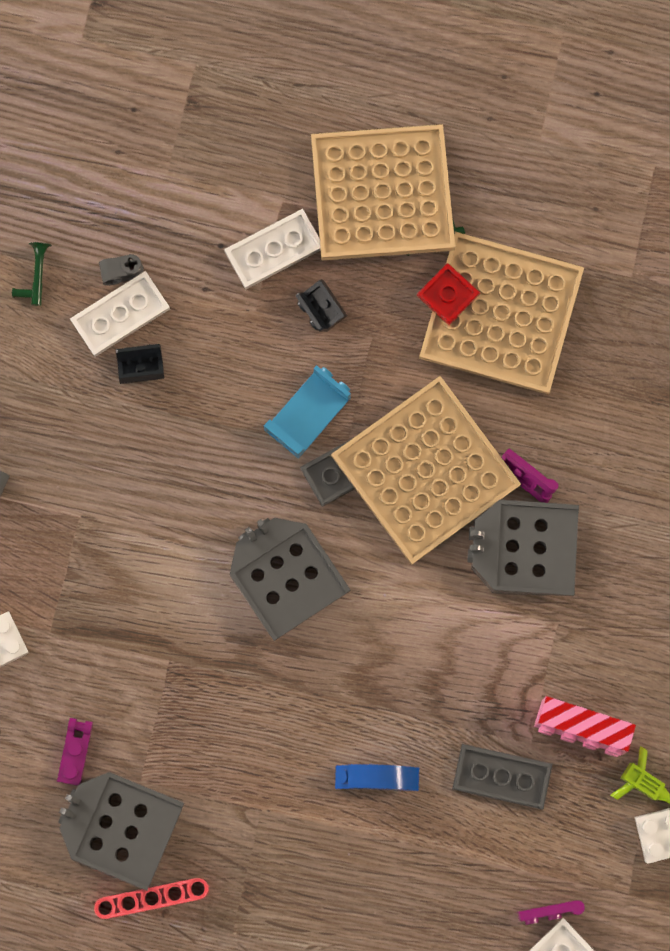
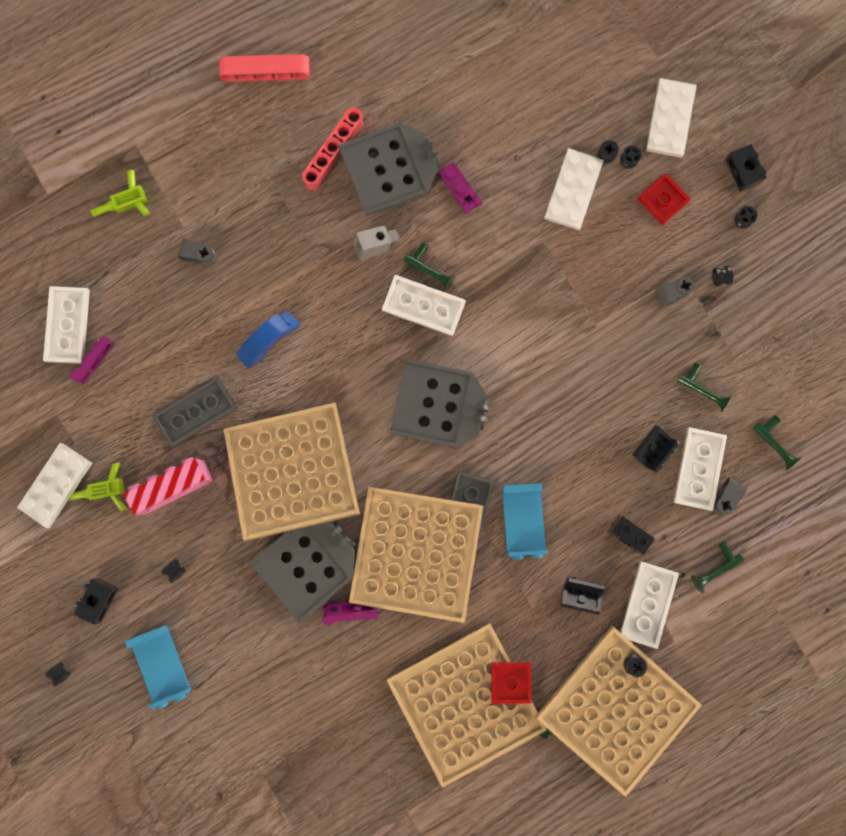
camera: 140 degrees right, 5 degrees up
(54, 391) = (688, 382): none -> dark green piece
(170, 217) = (732, 562): none -> dark green piece
(180, 723) = (415, 262): none -> dark green piece
(206, 775) = (374, 242): none -> light grey torso
(211, 675) = (423, 305): none -> white plate
(232, 315) = (631, 535): none -> black brick
(335, 217) = (634, 661): none -> black wheel
(367, 925) = (194, 252): none -> dark grey piece
(466, 639) = (290, 472): none -> tan plate
(647, 652) = (173, 571): none -> black wheel

